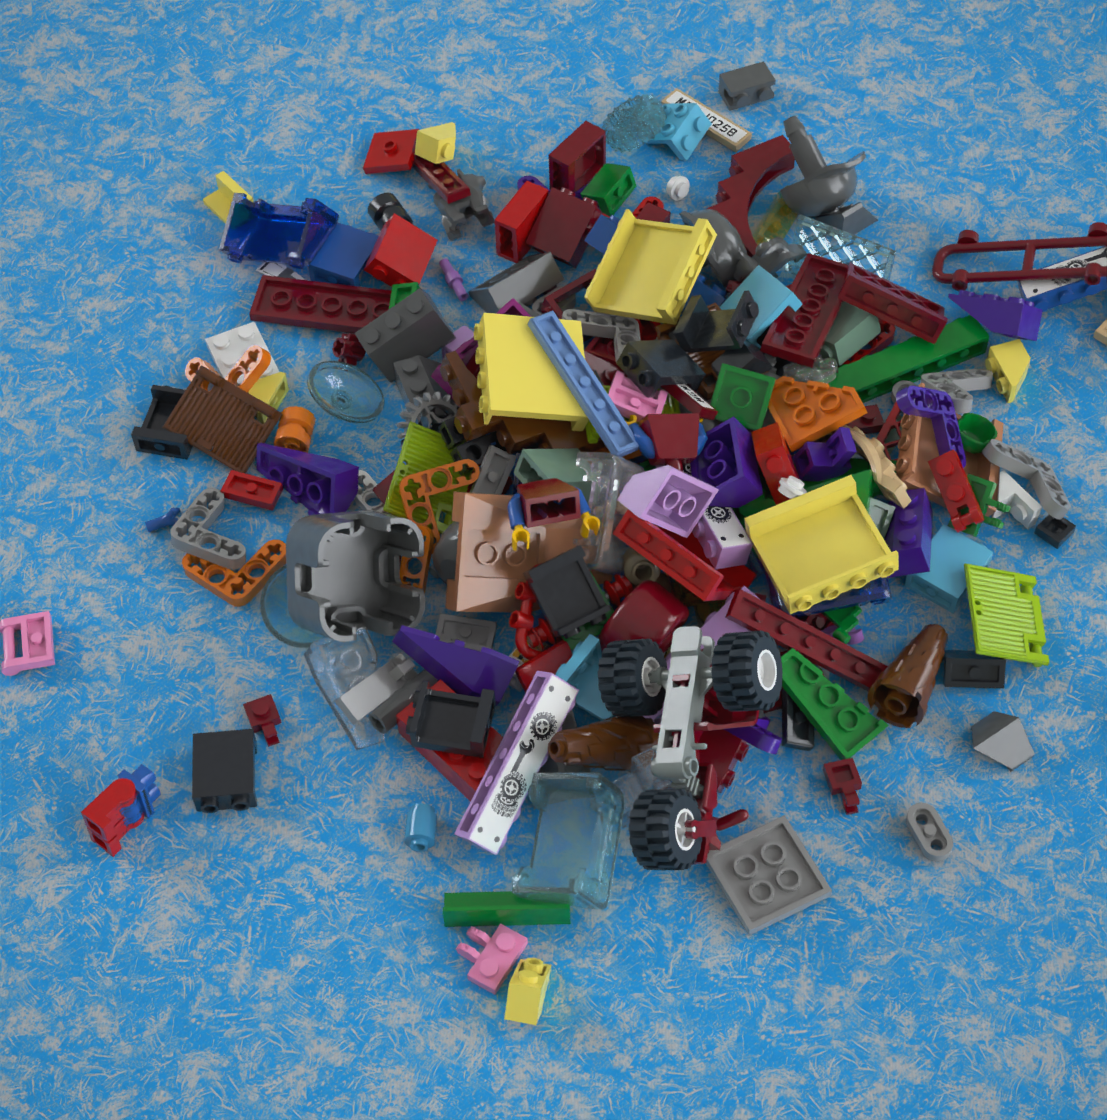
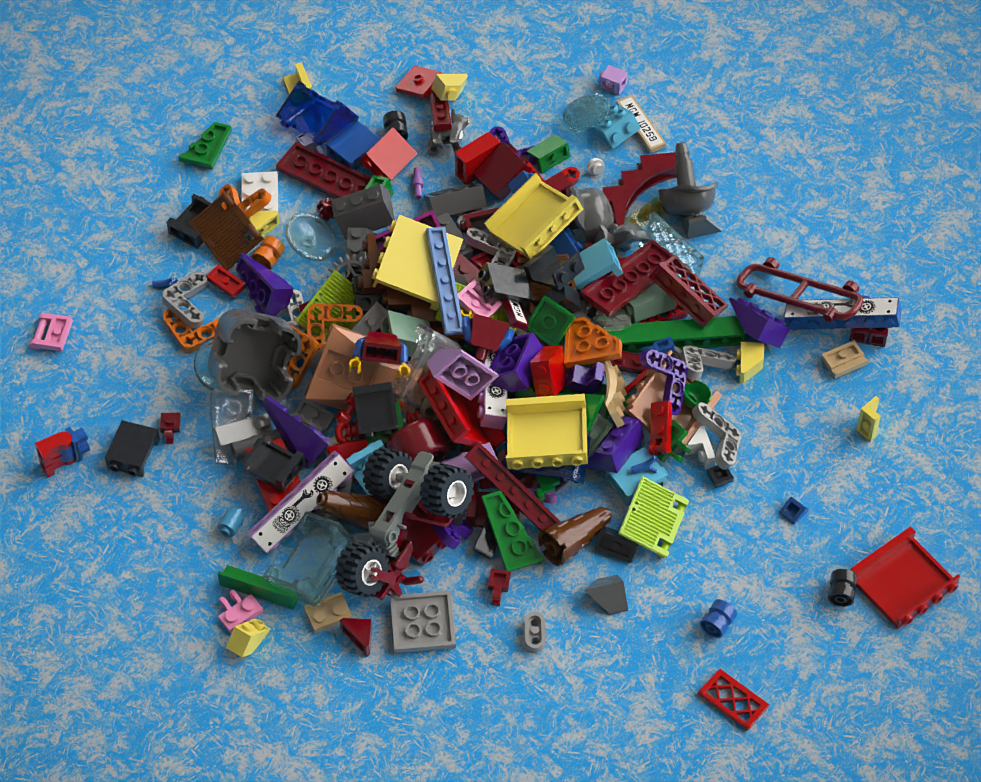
camera: 20 degrees right, 0 degrees up
(141, 320) = (208, 147): none -> green wing
(578, 158) = (523, 138): dark red window -> none
(626, 912) = (328, 612): none -> tan plate
(643, 76) = (613, 80): none -> lavender brick
(686, 924) = (359, 632): none -> dark red slope
(746, 85) = (680, 108): dark grey brick -> none
(791, 487) = (544, 389): white plate -> none
(888, 388) = (663, 345): none -> blue plate
(960, 549) = (645, 466): none -> blue bar

